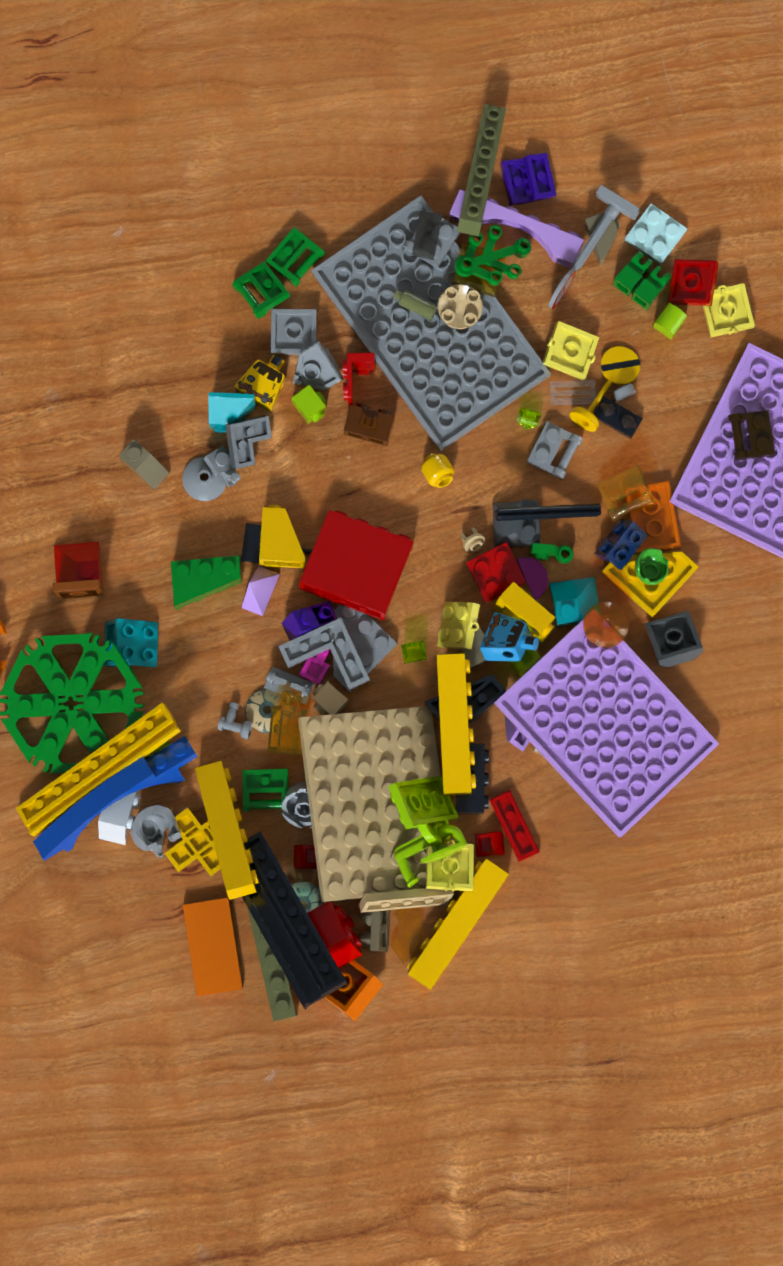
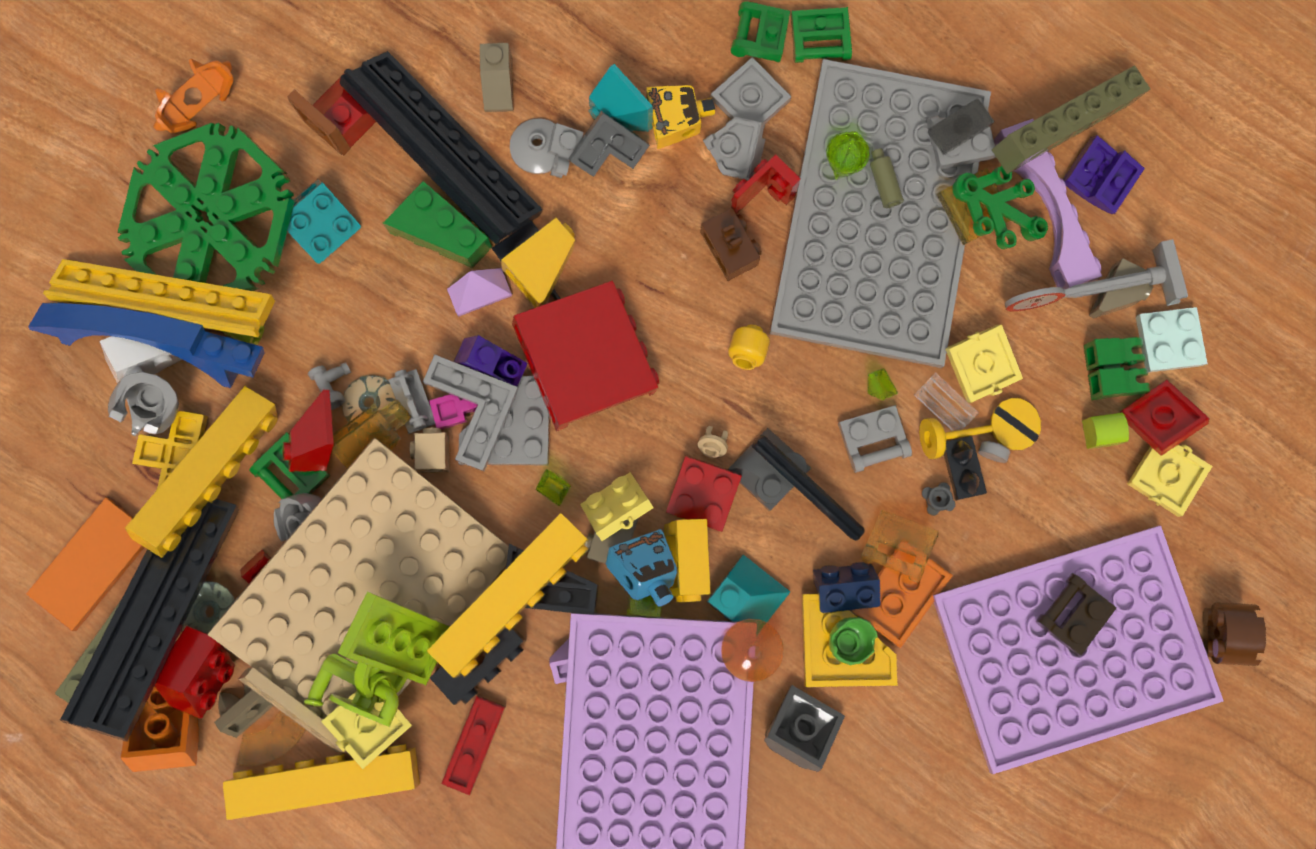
camera: 40 degrees right, 0 degrees up
(156, 533) = (440, 146): none -> black plate
(264, 754) = (311, 437): none -> red slope
(310, 404) = (697, 173): lime brick -> none
(381, 311) = (847, 154): none -> clear neon green hat
(460, 306) = (923, 221): tan dish -> none
(489, 844) = (433, 738): red slope -> none
(535, 576) = (736, 533): magenta tile -> none
(543, 551) = (767, 520): green plate -> none
(619, 441) = (943, 491): none -> dark grey plate

